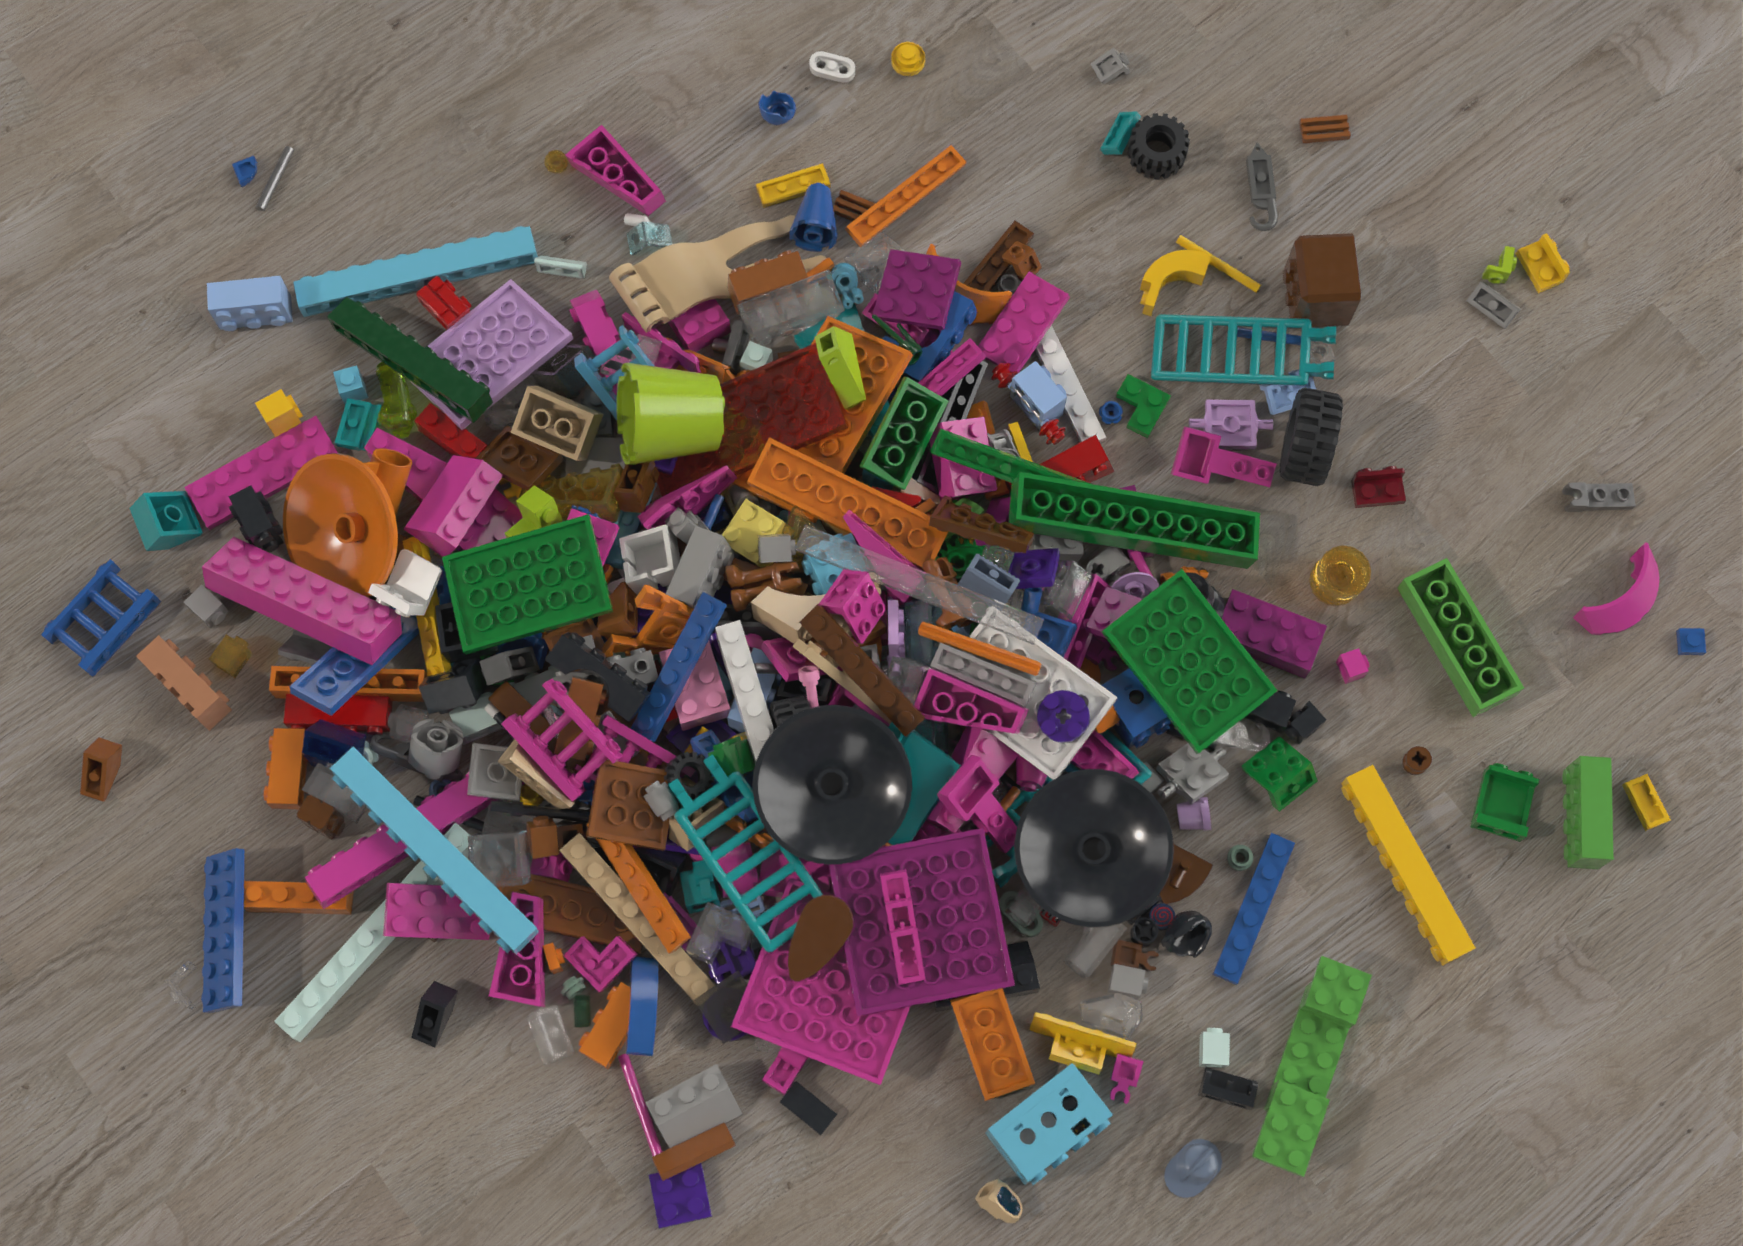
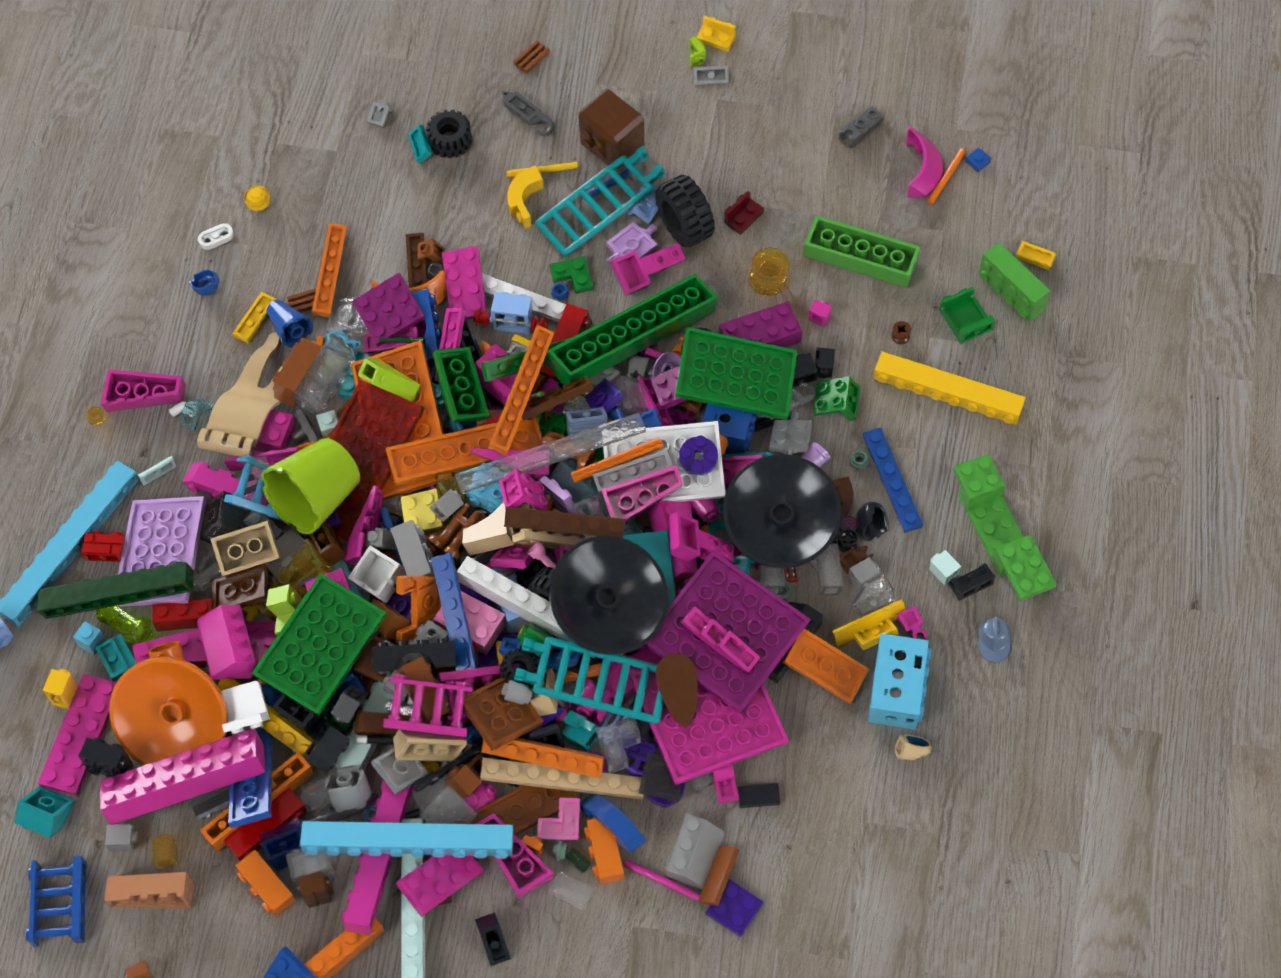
camera: 40 degrees left, 10 degrees down
(953, 492) = (521, 390): none -> orange plate
(1637, 631) = (946, 176): none -> orange bar

